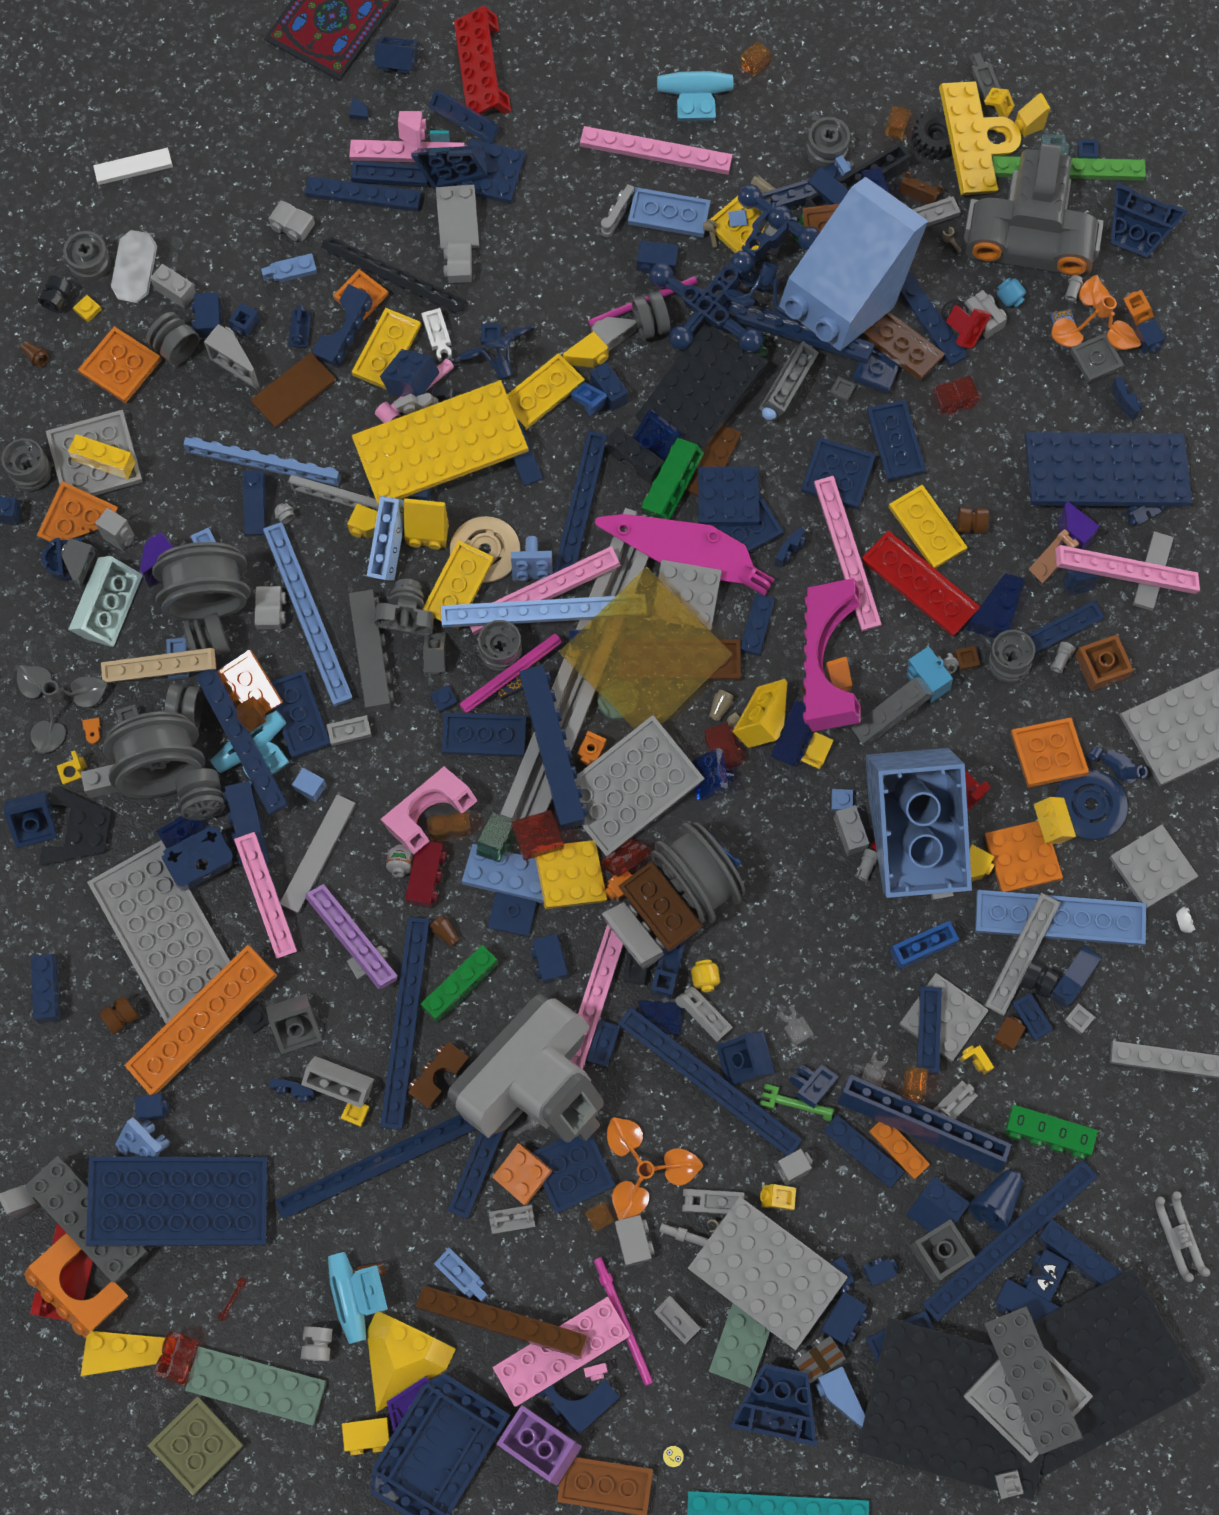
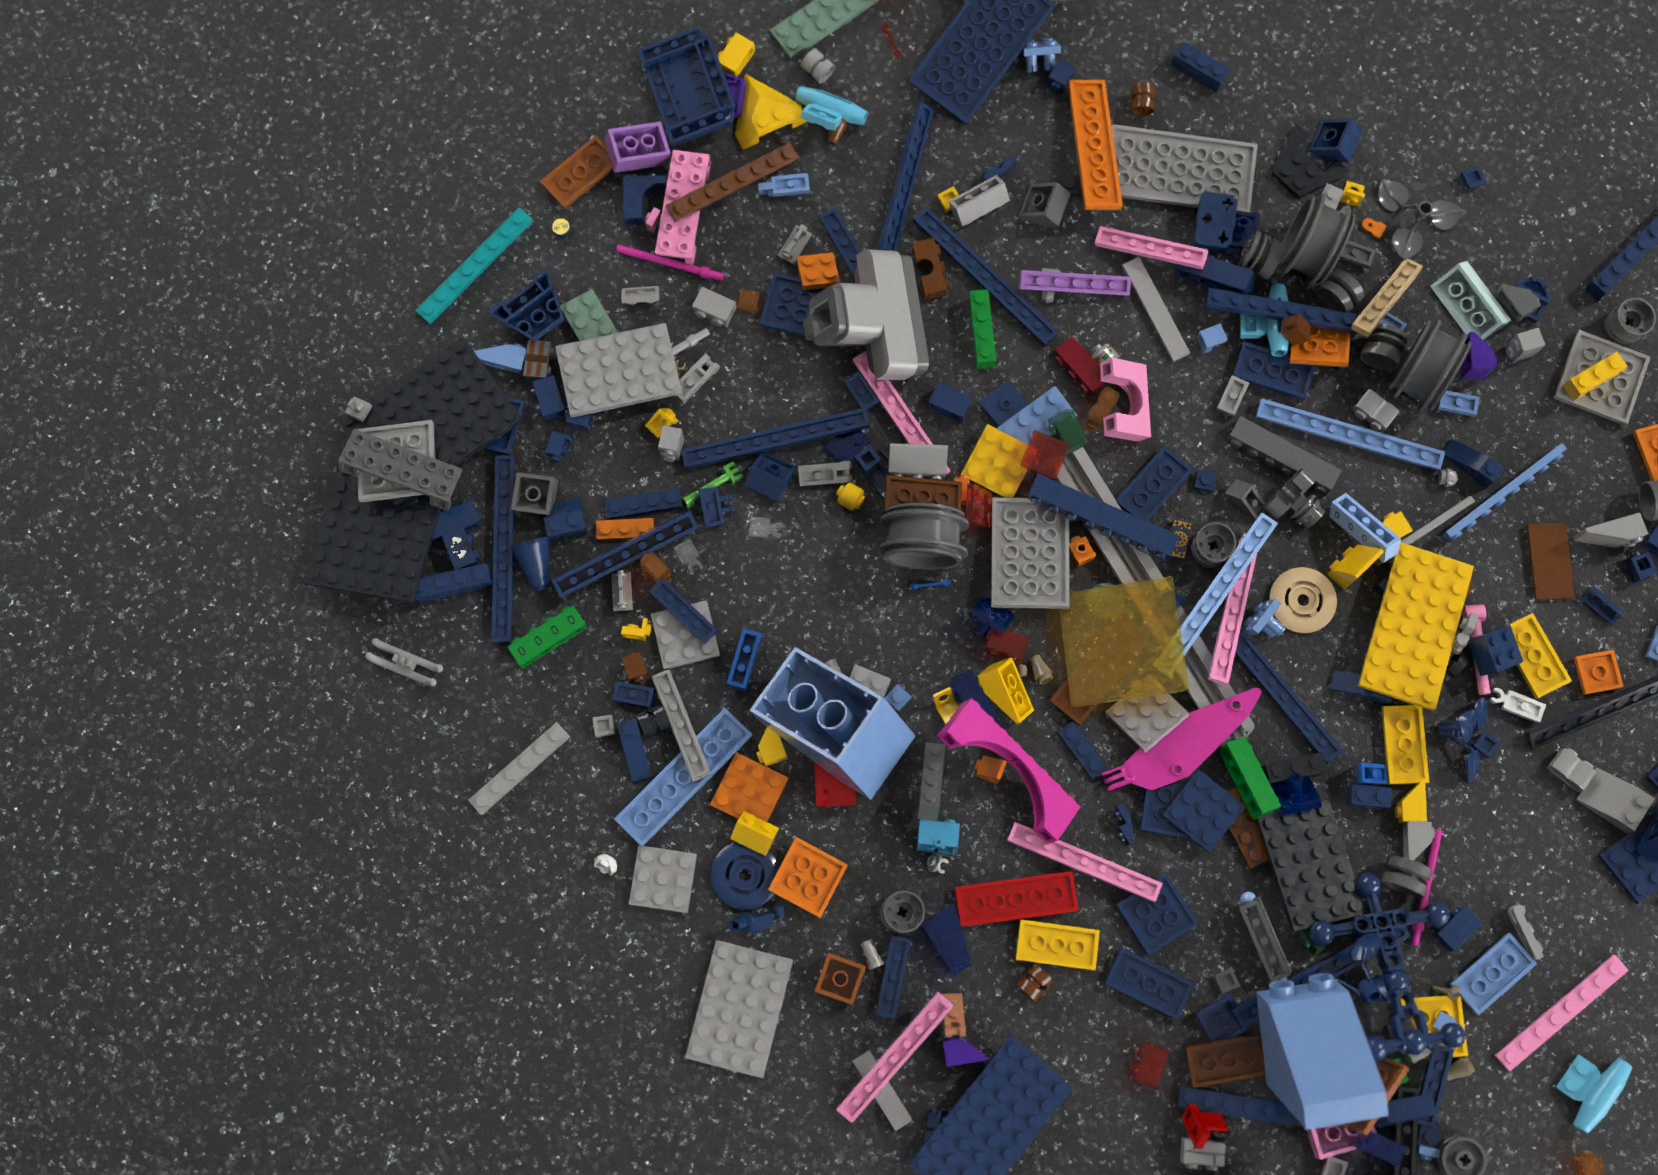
camera: 130 degrees right, 5 degrees up
(72, 513) = (1562, 328): orange plate -> none
(332, 347) = (1589, 655): dark blue arch -> none
(444, 930) = (1029, 349): reddish brown cone -> none
(459, 578) = (1290, 558): yellow plate -> none
(510, 673) = (1186, 539): dark pink axle -> none
(629, 1198) = (744, 330): orange plant -> none
(967, 658) = (929, 882): reddish brown plate -> none

